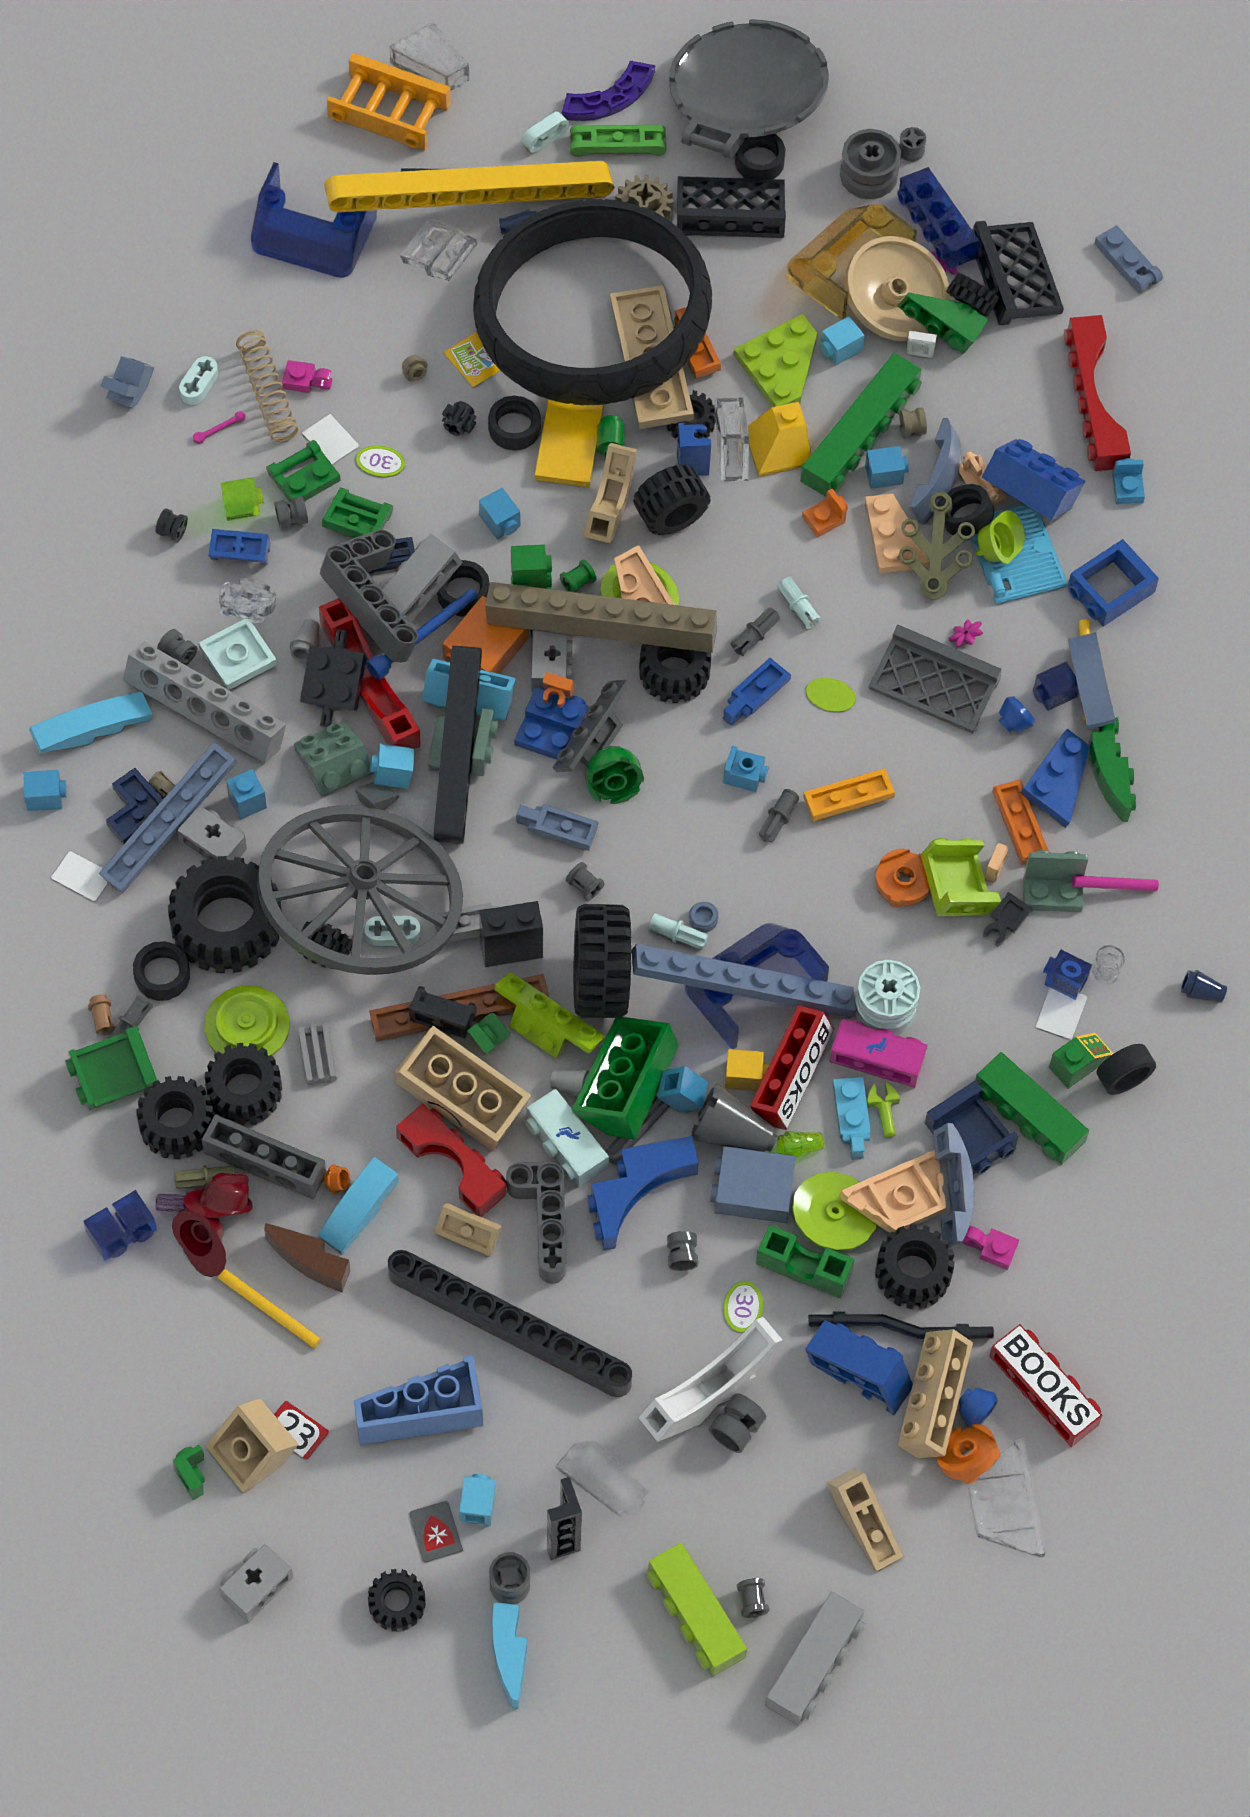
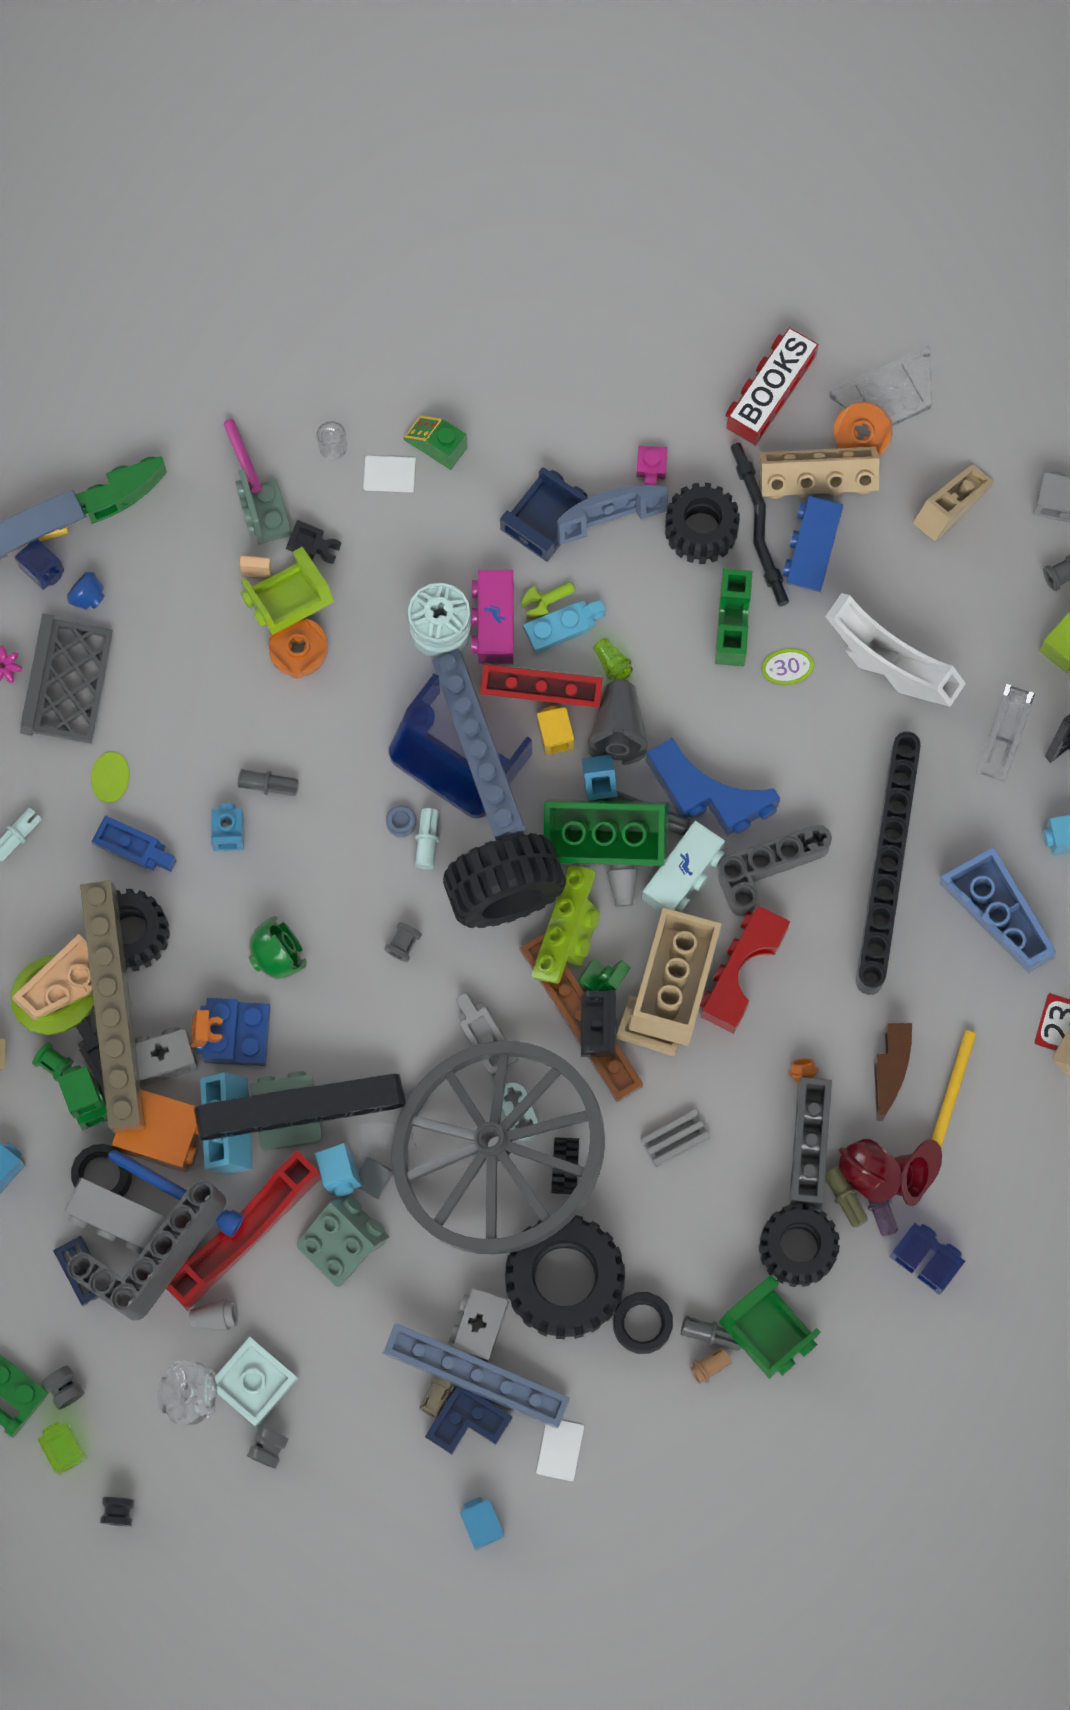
camera: 105 degrees left, 10 degrees up
(90, 721) = (386, 1505): medium azure slope -> none
(204, 702) = (326, 1392): light grey brick -> none
(239, 546) = (126, 1425): blue hinge -> none
(243, 1061) = (751, 1168): black tyre -> none
(246, 794) = (418, 1309): dark azure brick -> none
(248, 1017) = (666, 1220): lime piece -> none
(333, 678) = (257, 1265): black plate -> none
(352, 520) = (54, 1316): green plate -> none
(359, 1205) = (823, 1039): medium azure slope -> none
(468, 1229) = (809, 930): tan plate -> none
(511, 934) = (495, 984): black brick -> none
(558, 825) = (348, 987): sand blue hinge -> none
(595, 731) = (234, 983): dark grey bracket -> none
(682, 1250) = (759, 731): dark grey wheel -> none
(739, 1420) = (911, 630): dark grey wheel -> none
(753, 1184) = (669, 687): sand blue brick -> none
(755, 631) = (63, 866): dark grey axle -> none
(826, 1217) = (671, 607): lime piece -> none
(848, 794) = (223, 723): light orange plate -> none
(901, 1194) = (632, 555): light nougat wing -> none
(977, 1405) = (814, 434): blue cone -> none
(1019, 819) = (199, 560): orange tile -> none
(1031, 1109) = (505, 468): green brick -> none
(1058, 778) = (140, 537): blue wing -> none
(1067, 974) = (354, 472): clear blue brick -> none
(1126, 1069) = (440, 393): black tyre -> none
(1201, 986) = (326, 356): dark blue cone -> none

